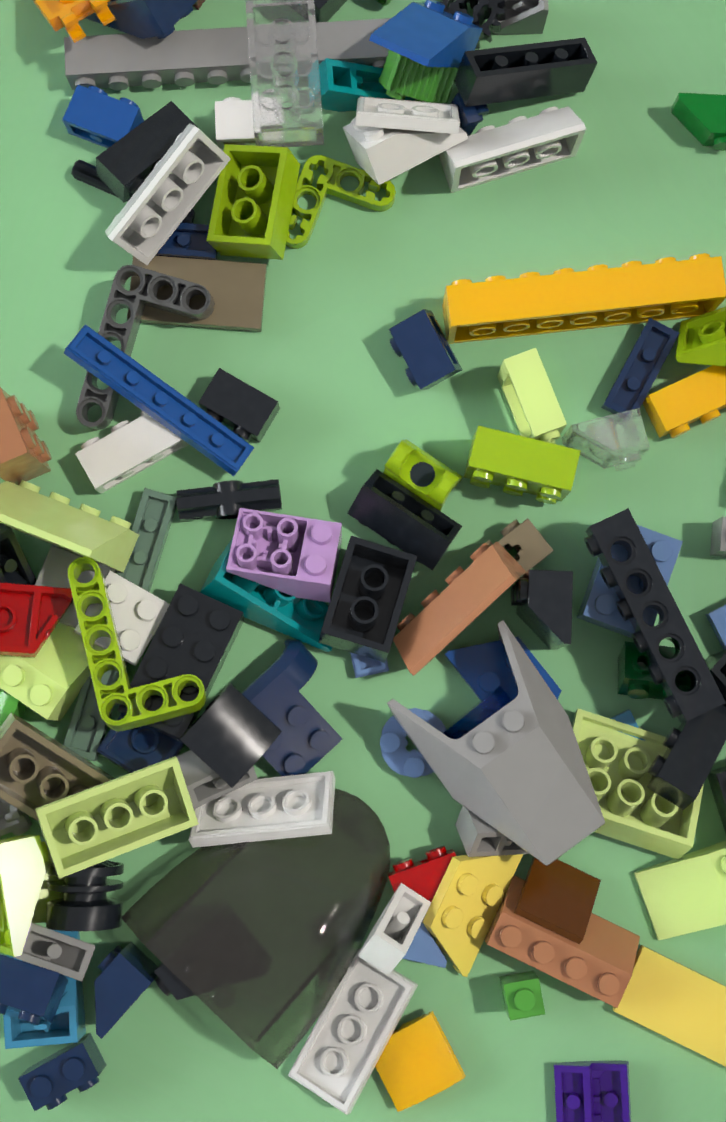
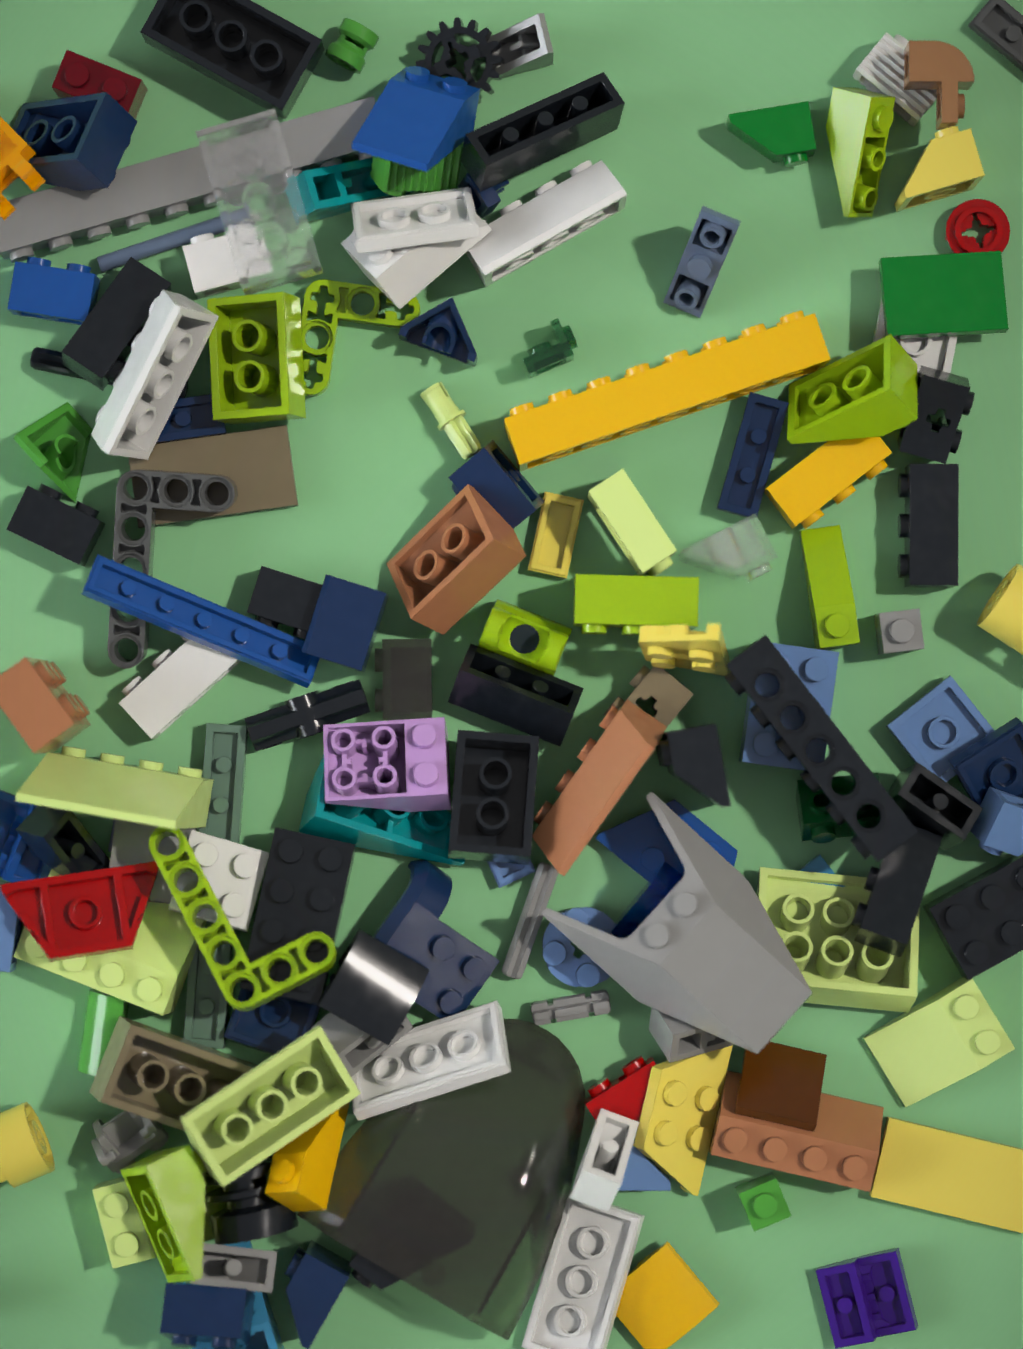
camera: 10 degrees left, 5 degrees up
(60, 301) = (56, 525): none -> black brick
(78, 239) = (58, 446): none -> bright green slope
(138, 875) = (305, 1166): none -> yellow slope
(194, 102) = (159, 244): none -> sand blue bar
(278, 429) = (345, 623): none -> dark blue slope
(317, 485) = (406, 679): none -> clear smoke brick
(375, 711) = (529, 921): none -> light grey axle
(379, 398) = (455, 561): none -> nougat slope
(393, 791) = (570, 1007): none -> light grey axle
(400, 286) = (451, 420): none -> yellowish green axle
(408, 215) = (441, 332): none -> dark blue slope
(465, 400) = (555, 535): none -> light yellow tile
(490, 255) = (547, 357): none -> clear green bracket
(557, 508) = (684, 648): none -> light yellow wing
(634, 201) = (701, 261): none -> sand blue slope
(682, 491) = (829, 588): none -> lime slope

